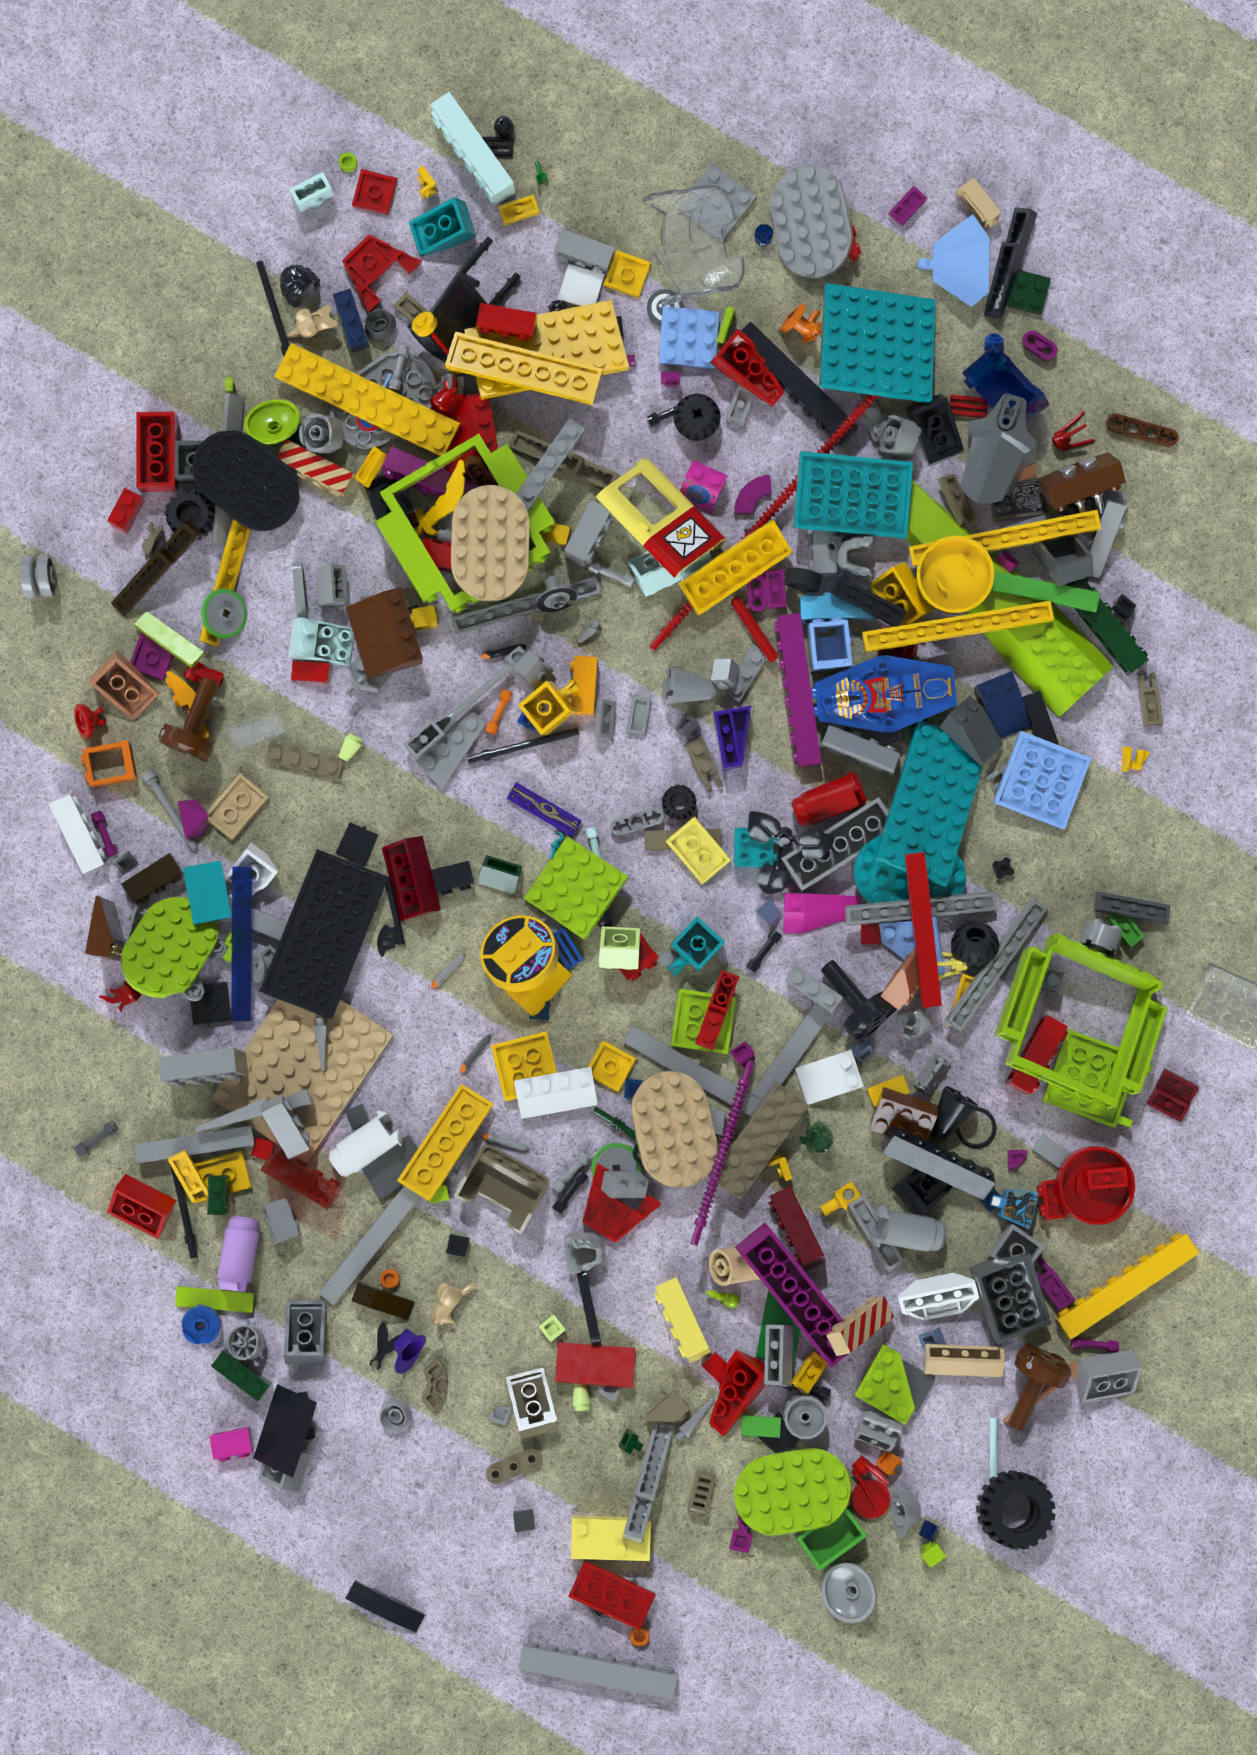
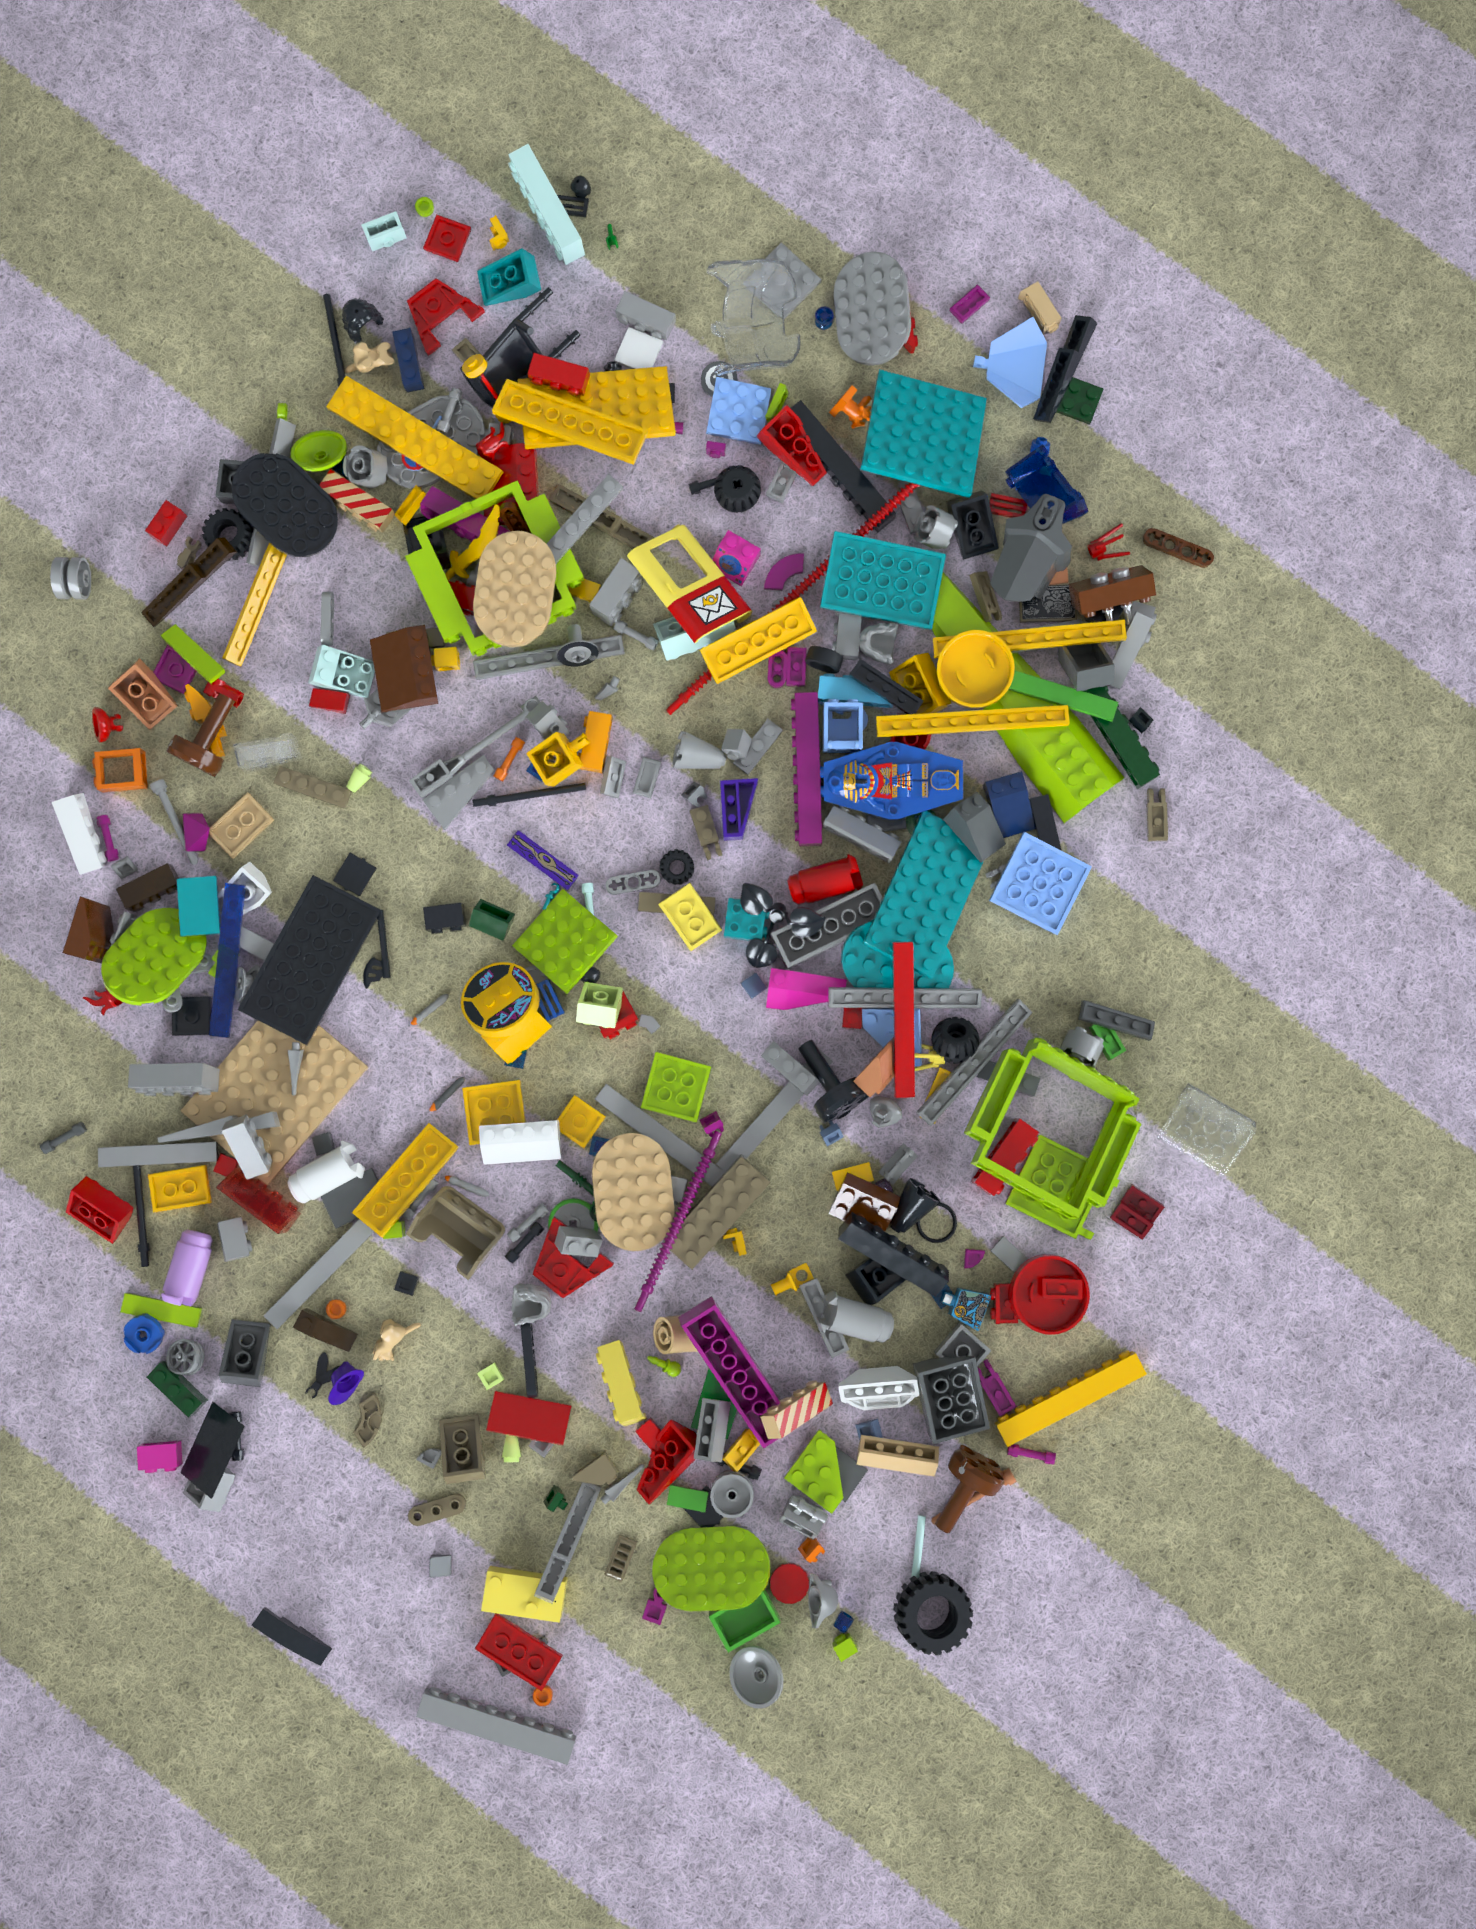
camera: 15 degrees right, 0 degrees up
(156, 451) = (200, 467): red brick -> none
(188, 1174) = (147, 1184): yellow hinge -> none
(213, 609) = (237, 630): light grey wheel -> none
(218, 1195) = (174, 1207): dark green brick -> none
(331, 585) = (358, 616): light grey brick -> none
(386, 325) = (436, 367): dark grey hat -> none
(401, 1413) = (325, 1446): light grey hat -> none
(411, 878) = (403, 913): dark red slope -> none
(501, 652) = (519, 700): black piece -> none
(518, 210) = (586, 269): yellow plate -> none
(627, 274) = (685, 343): yellow tile -> none
(693, 956) = (665, 1010): teal brick -> none
(717, 1010) = (690, 1077): red slope -> none
(754, 629) = (771, 704): red axle -> none
(754, 964) = (756, 1011): black bar -> none
(797, 1228) = (746, 1305): dark red wedge -> none
(818, 1138) = (777, 1216): clear green piece -> none
(829, 1077) = (795, 1156): white slope -> none
(835, 542) = (858, 626): dark grey bar -> none
(863, 1465) = (784, 1550): red plant -> none
(998, 868) = (996, 970): black plate -> none
(1007, 561) = (1030, 662): dark pink tile -> none
(1041, 343) = (1086, 453): magenta plate -> none
(1108, 1375) = (1041, 1487): light grey slope -> none
(1127, 763) = (1127, 876): yellow piece -> none

